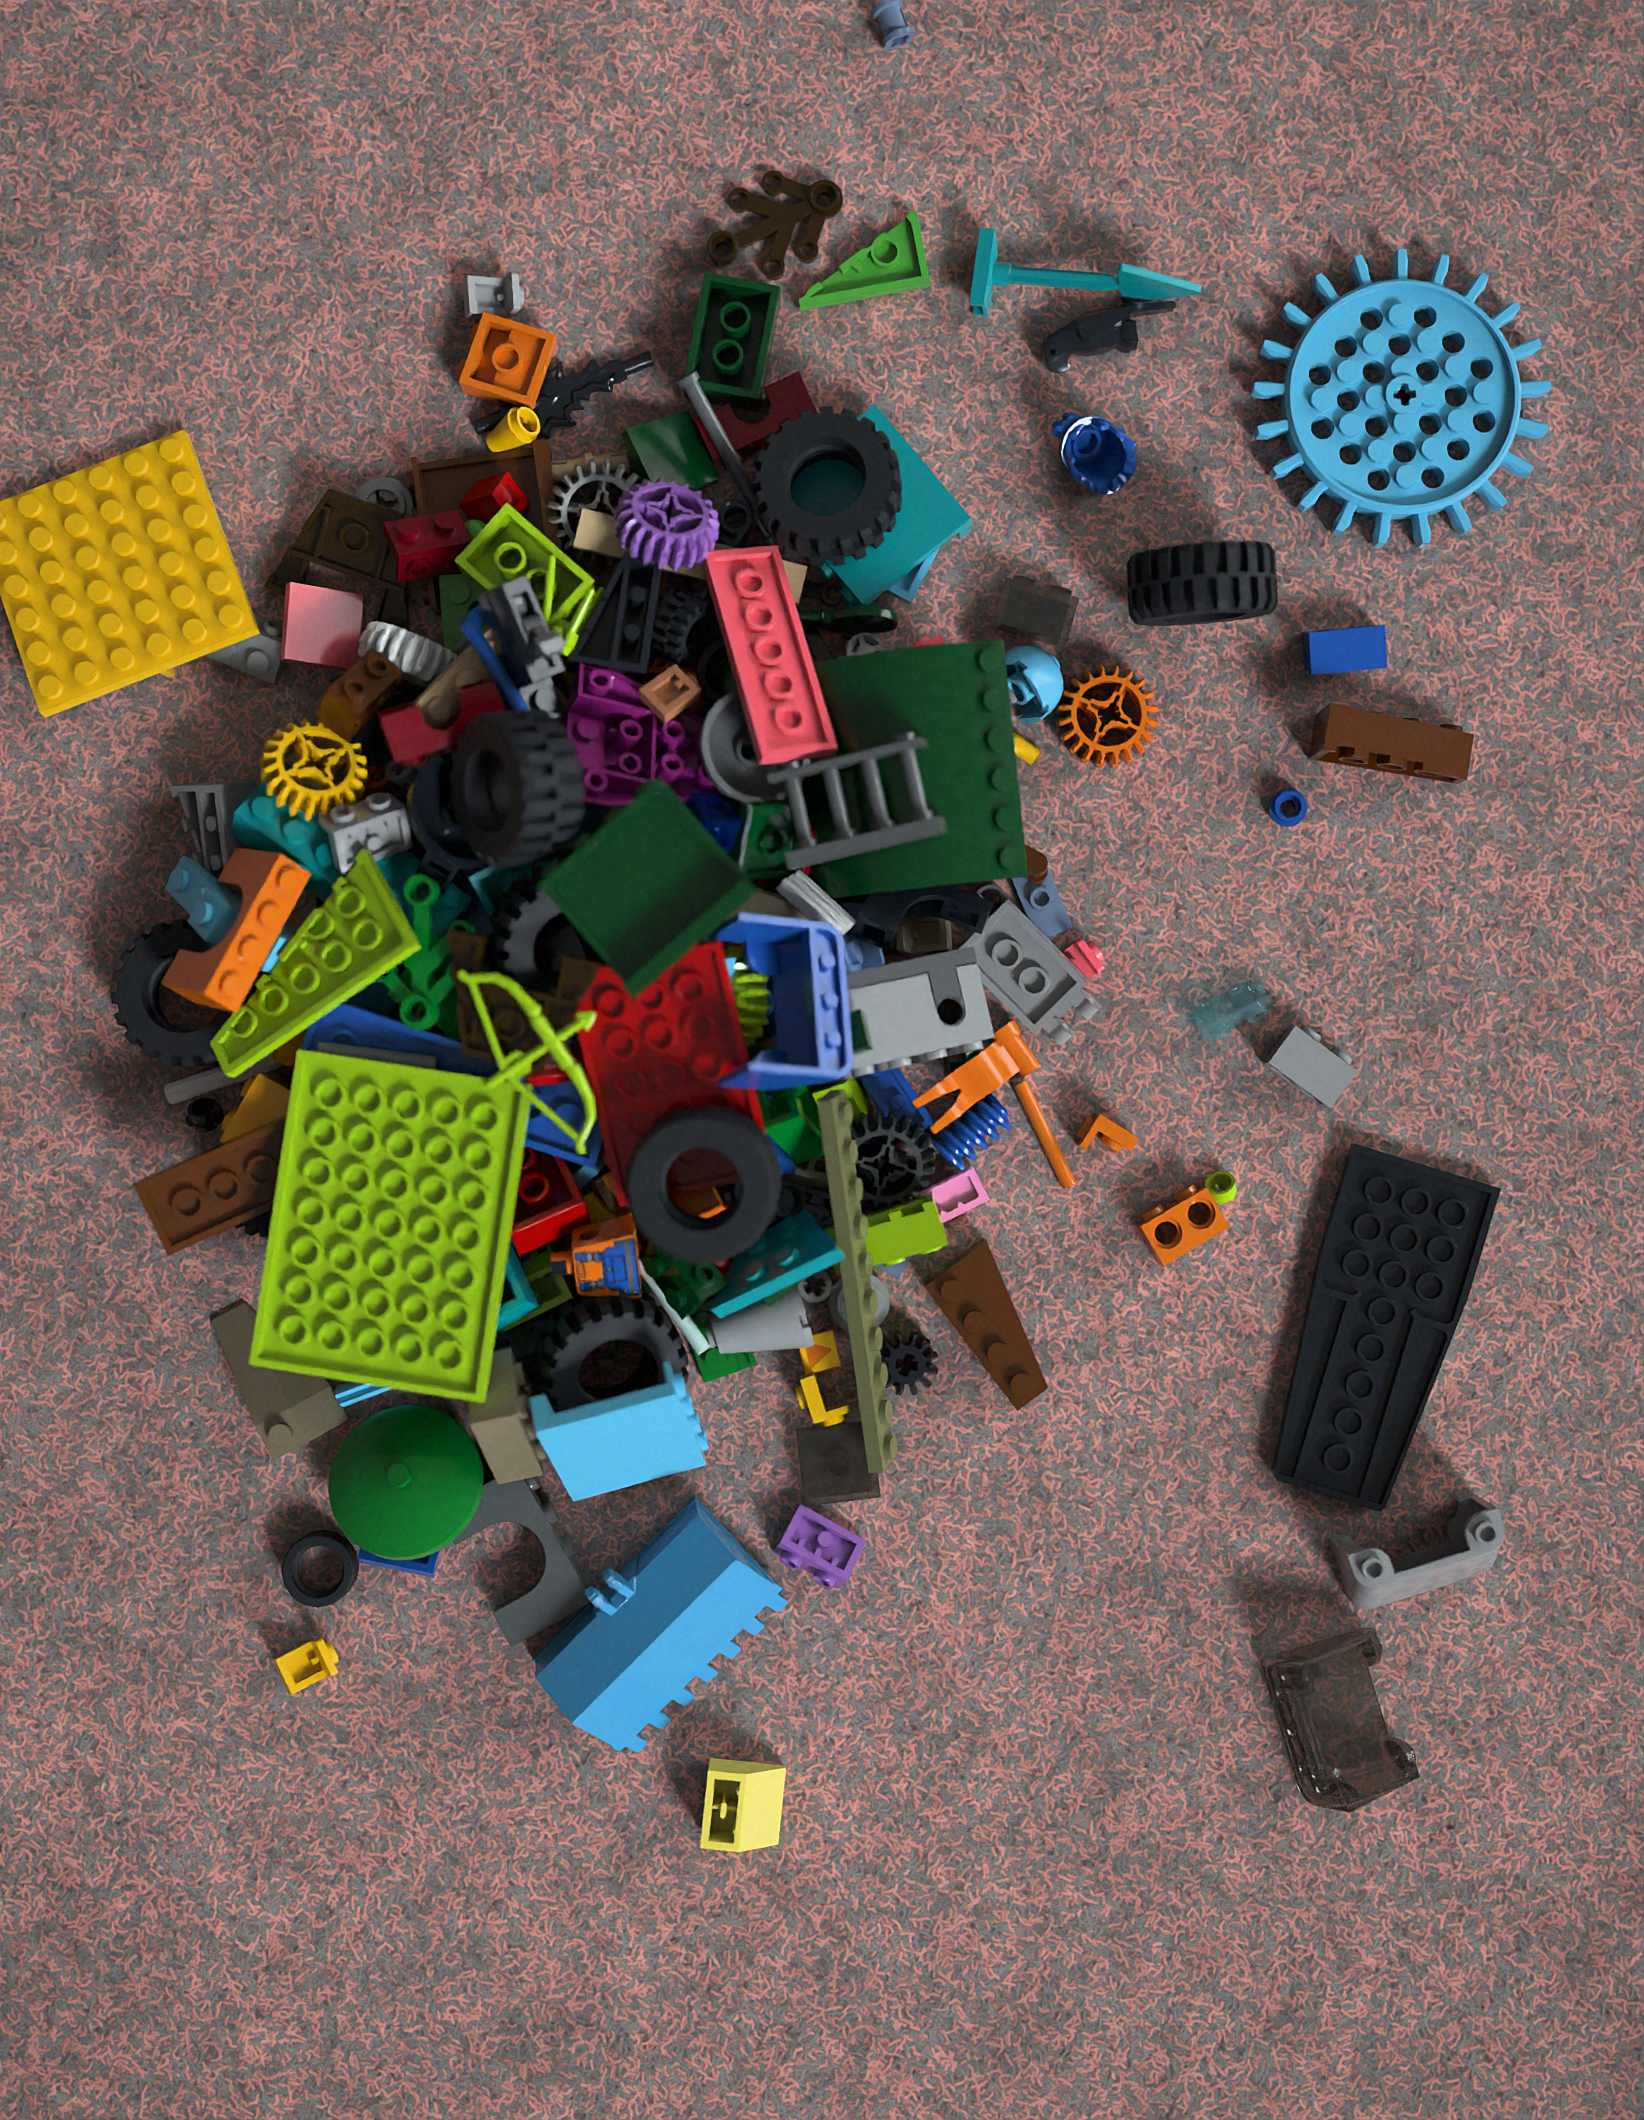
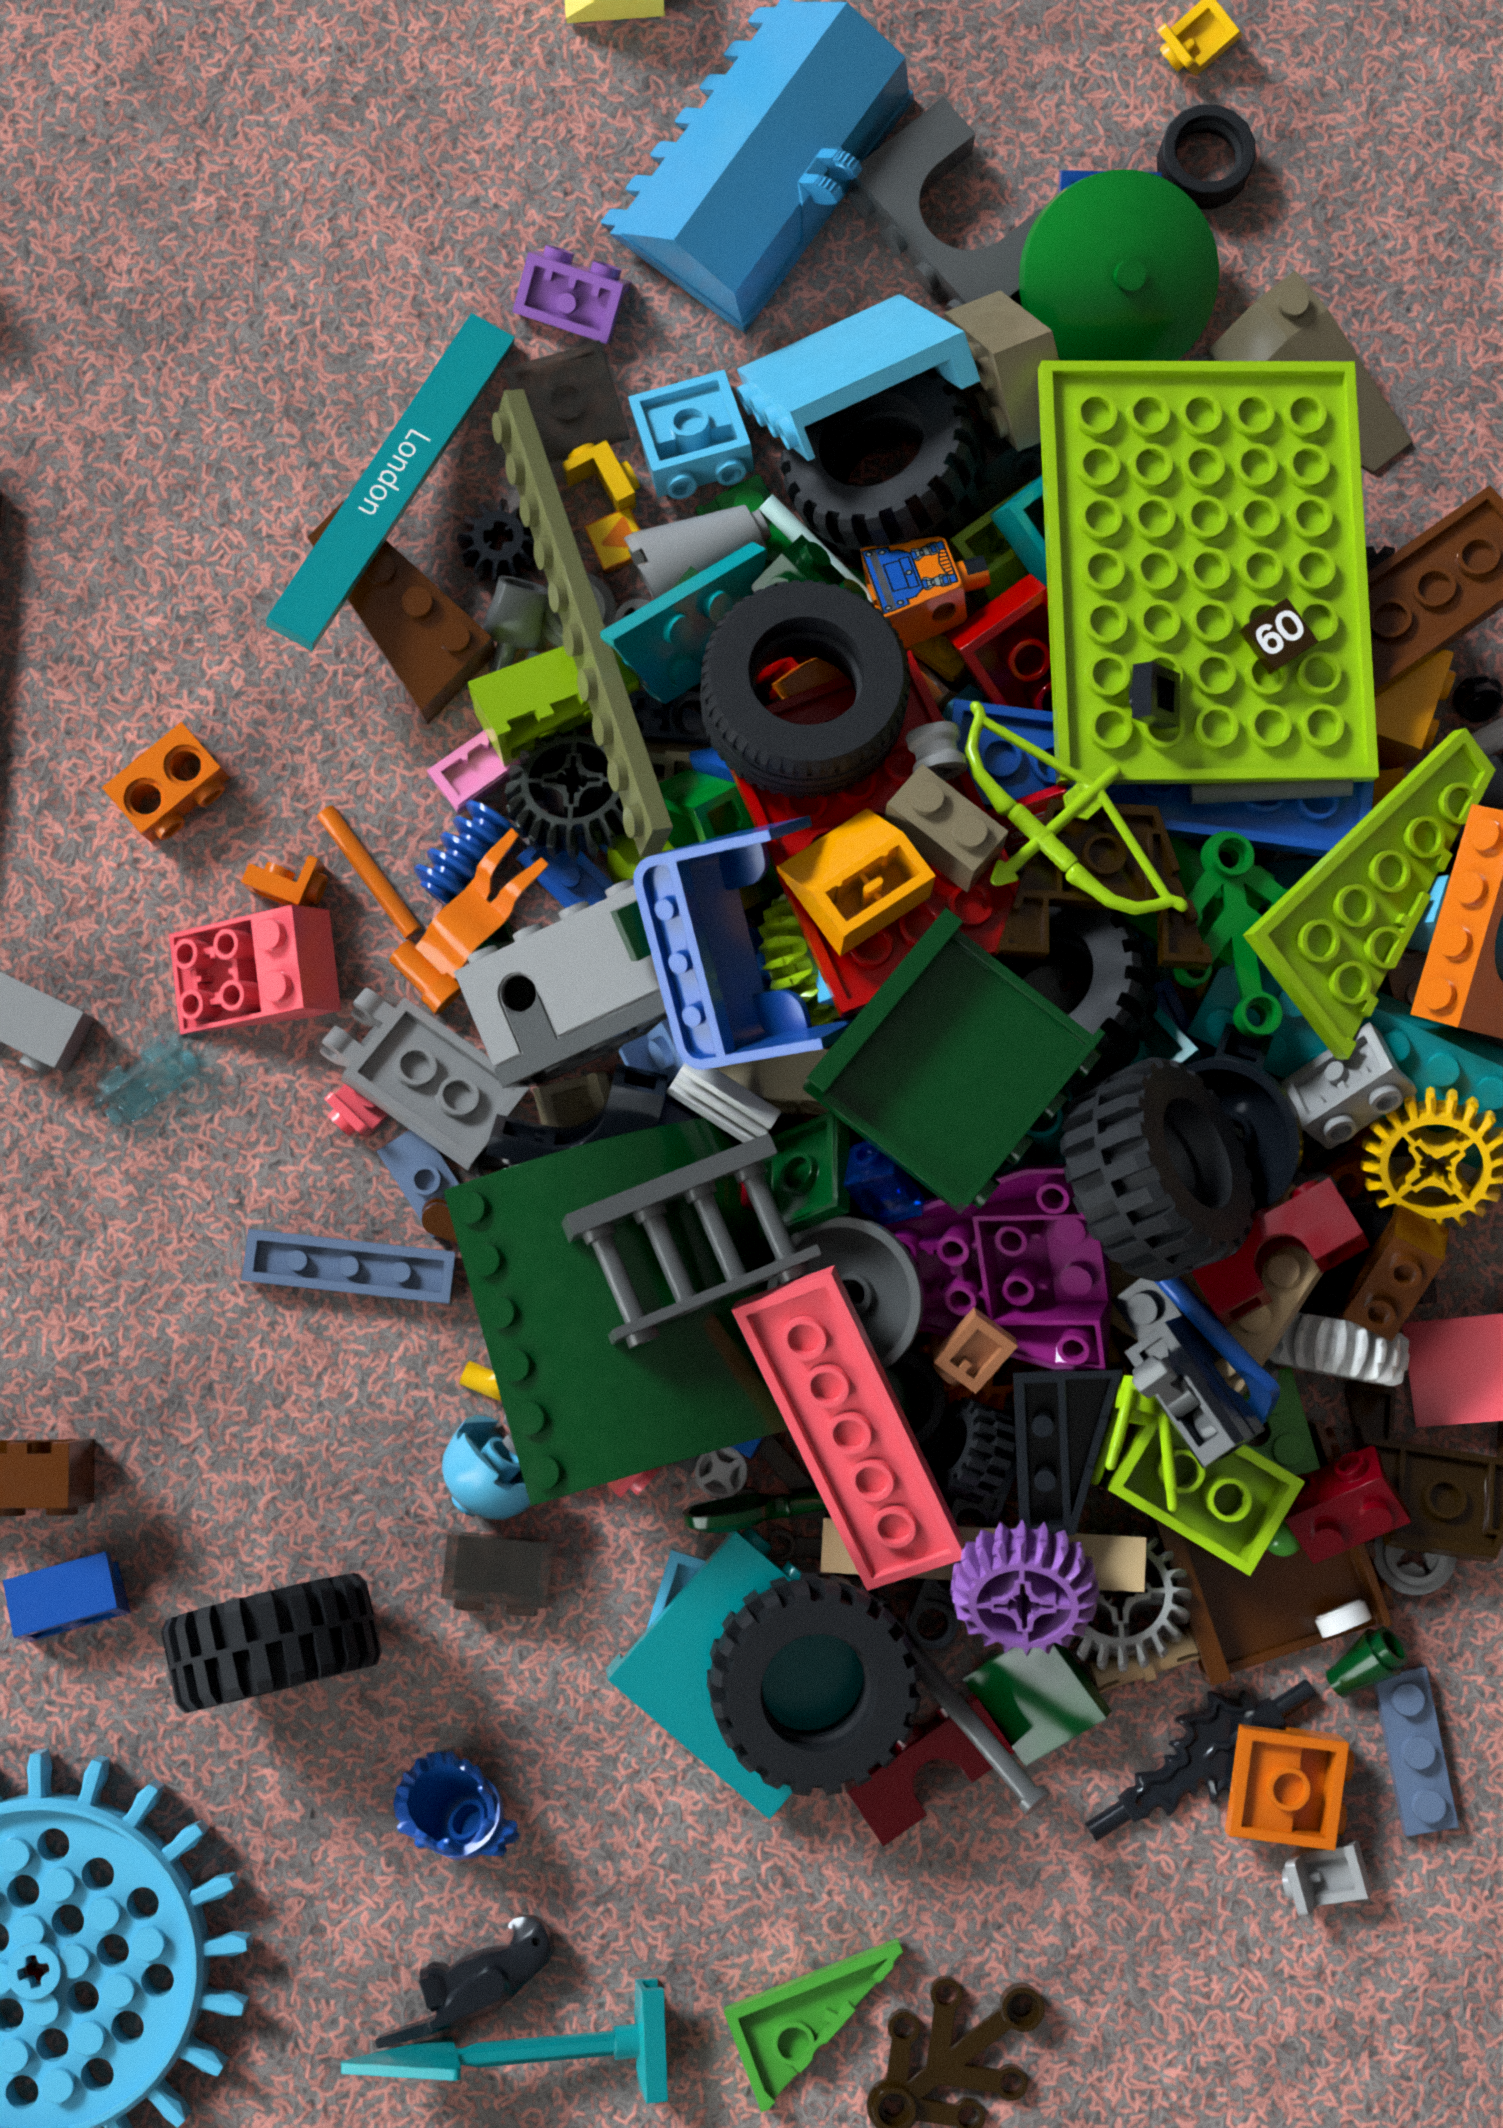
camera: 170 degrees right, 5 degrees down
(349, 1163) = (1278, 636): none -> dark brown tile
(412, 372) = (1415, 1752): none -> sand blue plate
(431, 437) = (1368, 1661): none -> dark green cone
(444, 469) = (1343, 1618): none -> white tile
(449, 1131) = (1155, 695): none -> plate
(490, 495) = (1270, 1591): red panel -> none
(514, 430) = (1256, 1692): yellow cone -> none
(616, 1120) = (937, 749): none -> light grey wheel
(621, 1061) = (946, 828): none -> dark tan brick
(692, 1035) = (858, 879): none -> light orange slope
(733, 339) = (982, 1875): dark green brick -> none
(748, 1420) = (692, 435): none -> medium azure plate
(905, 1301) = (515, 618): none -> dark grey piece
(978, 1418) = (390, 483): none -> teal tile
(1105, 847) = (349, 1266): none -> sand blue plate
(1122, 723) = (368, 1469): orange gear -> none
(1140, 1074) = (255, 970): none -> coral slope
(1218, 1179) = (114, 849): lime hinge -> none
(1298, 802) = (95, 1366): blue plate -> none

